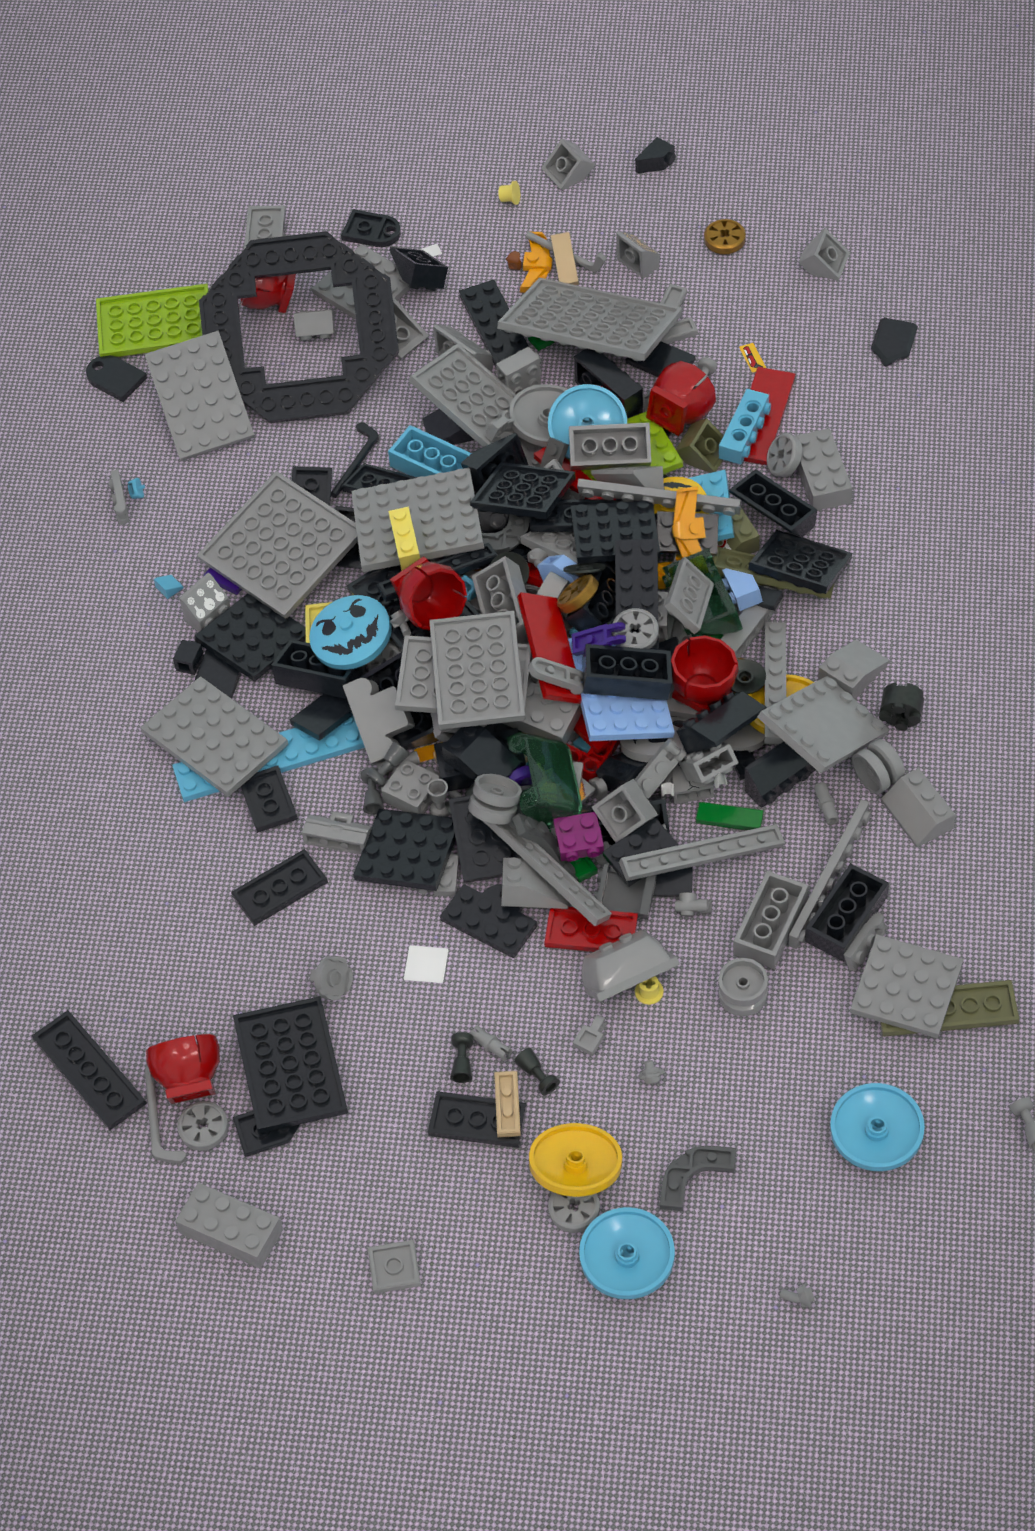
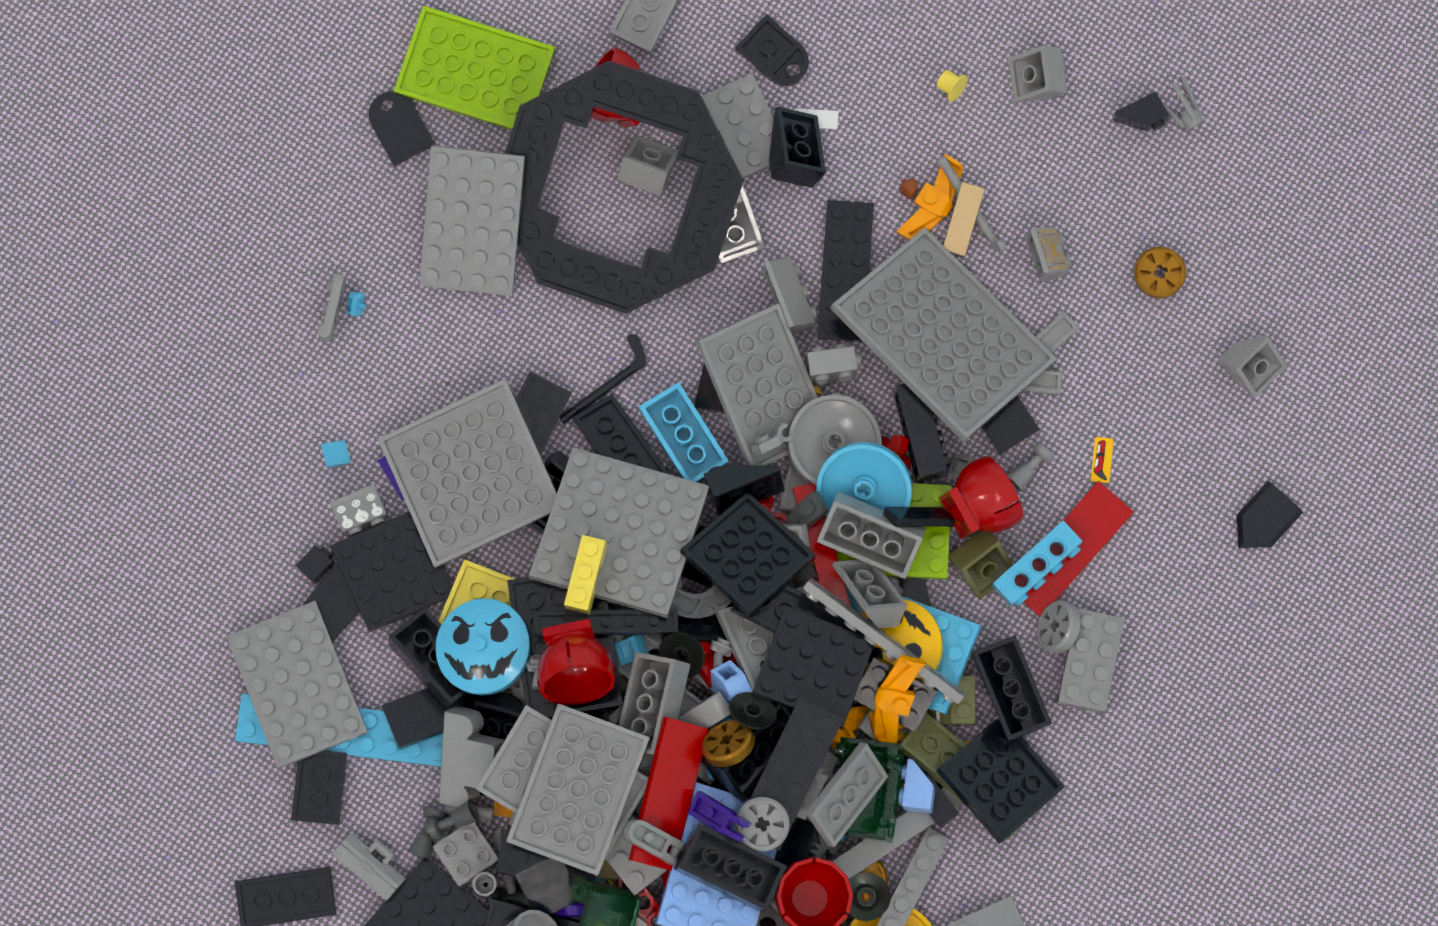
camera: 20 degrees right, 25 degrees up
(653, 421) = (919, 516): none -> black tile
(689, 145) = (1192, 115): none -> light grey plant

